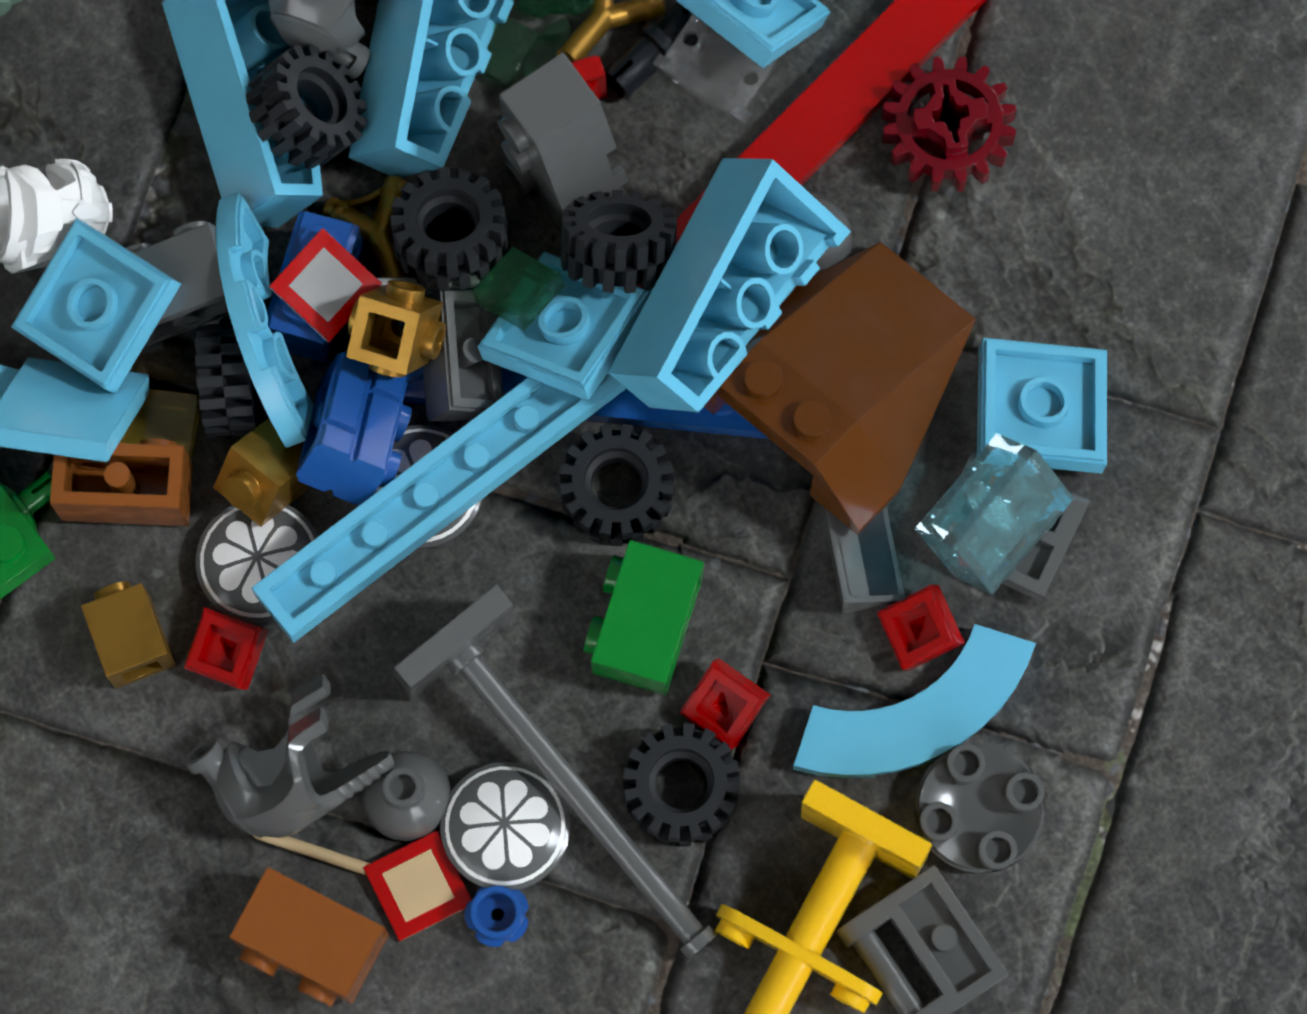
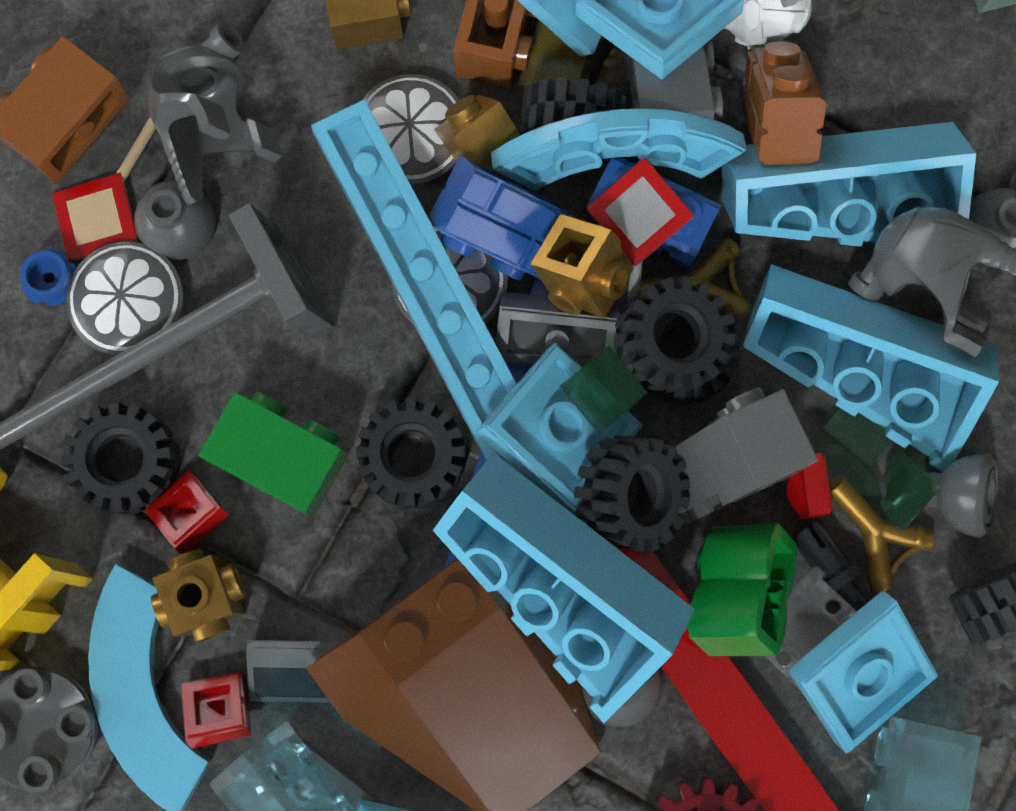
camera: 100 degrees right, 5 degrees up
(179, 167) = (783, 105): none -> dark orange brick
(226, 648) = (335, 84): red tile -> none
(286, 119) = (838, 251): black tyre -> none
(690, 125) = (743, 590): none -> green brick
(809, 685) = (220, 598): none -> pearl gold brick

